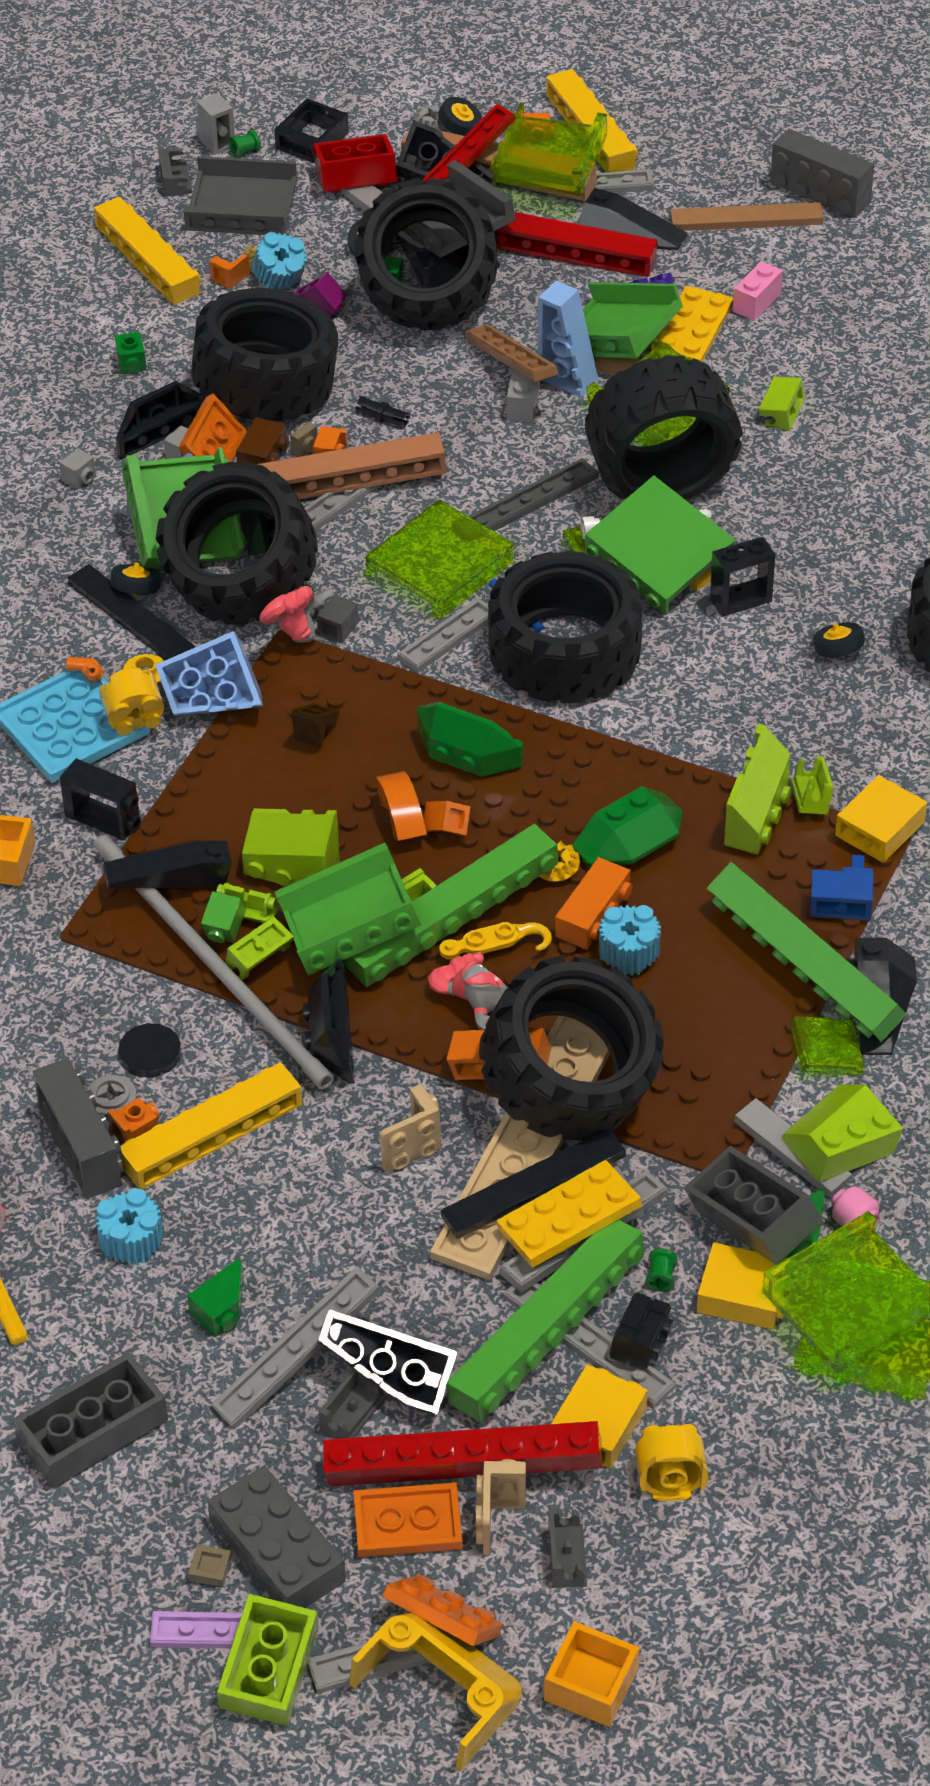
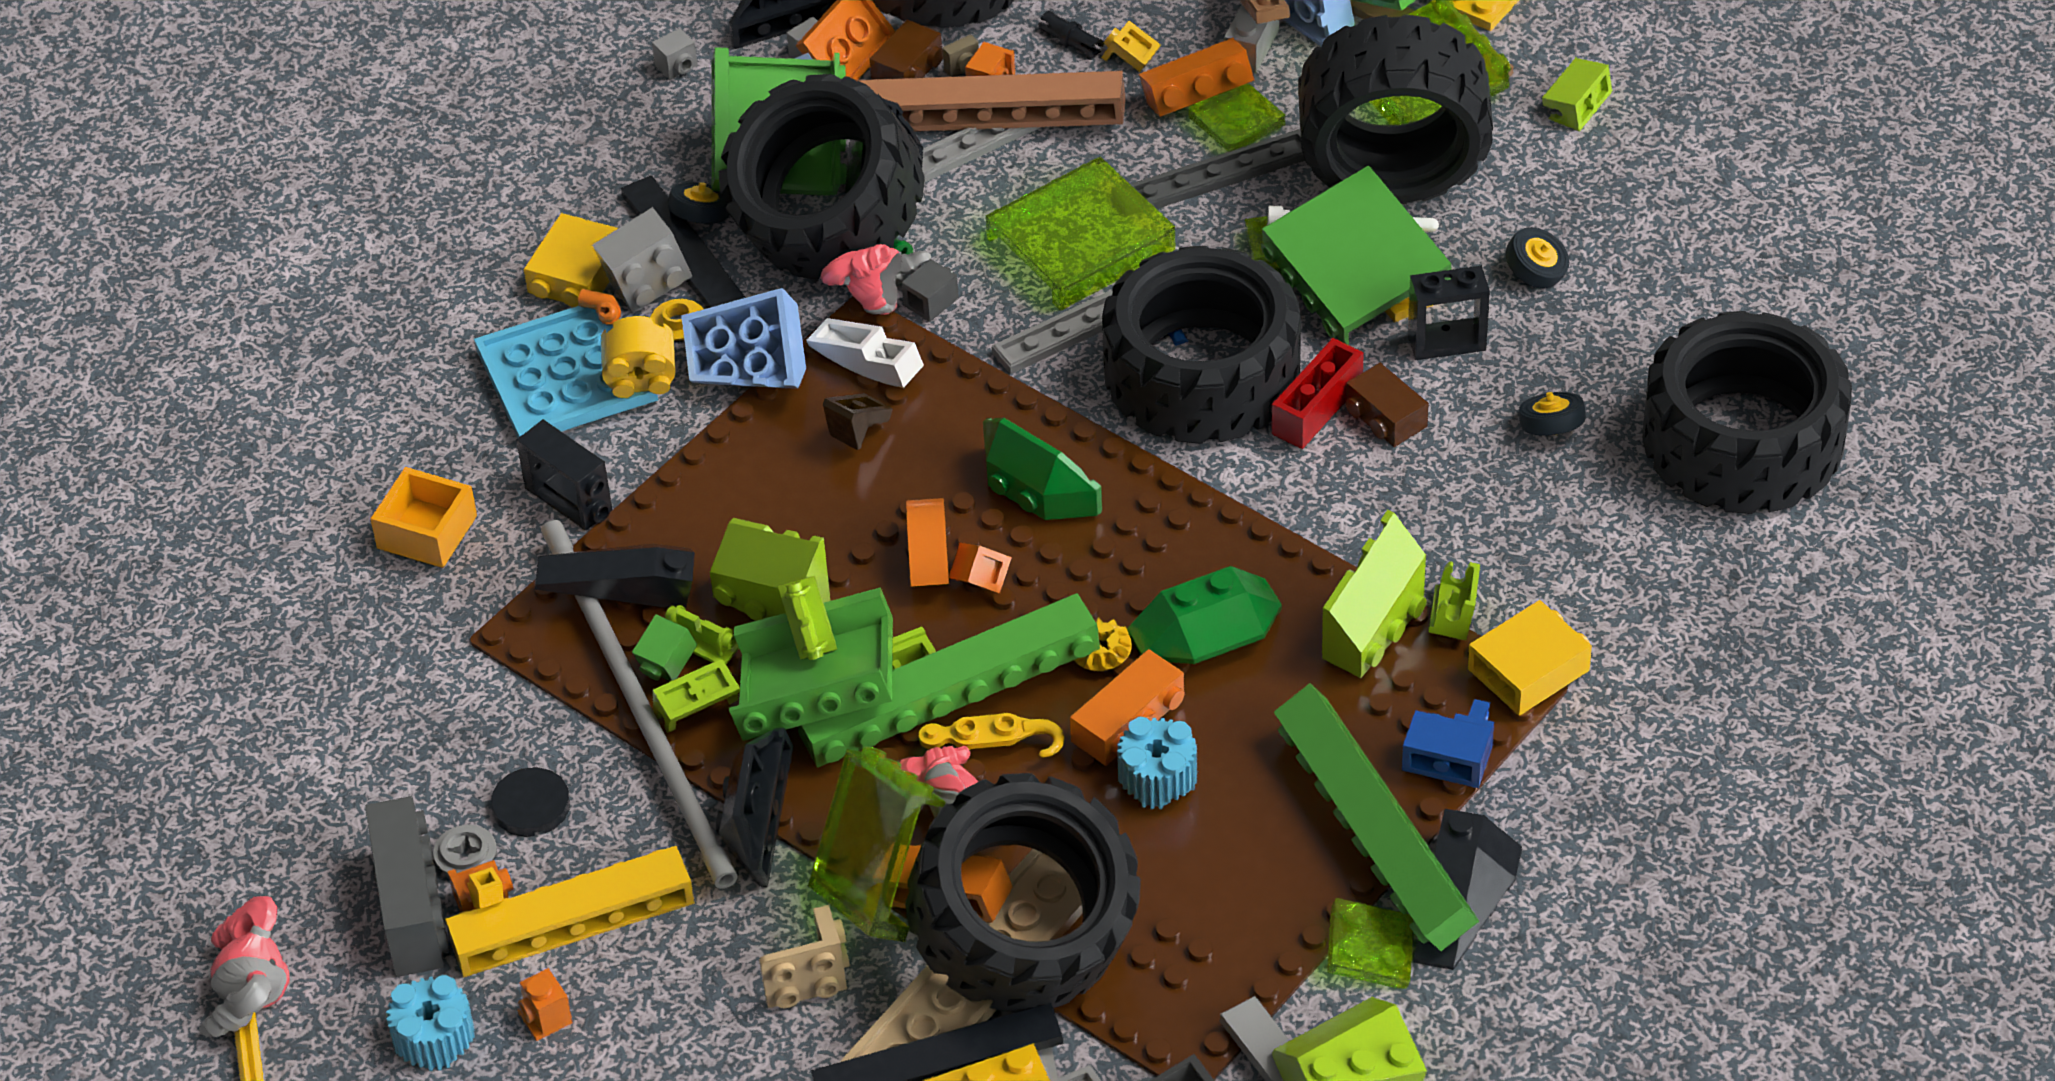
camera: 15 degrees right, 0 degrees up
(50, 636) = (567, 261): none -> yellow brick
(109, 627) = (642, 260): none -> light grey brick
(144, 1118) = (485, 888): none -> yellow piece
(214, 1198) = (544, 1005): none -> orange brick
(305, 671) = (867, 351): none -> white slope
(334, 874) = (807, 618): none -> lime hinge
(432, 413) = (1131, 45): none -> yellow bracket
(441, 1029) = (869, 840): none -> clear neon green panel
(493, 430) = (1196, 77): none -> orange brick
(530, 455) = (1237, 117): none -> clear neon green plate
(660, 651) = (1316, 393): none -> red brick
(713, 651) = (1386, 405): none -> reddish brown brick
(791, 527) = (1537, 257): none -> black wheel

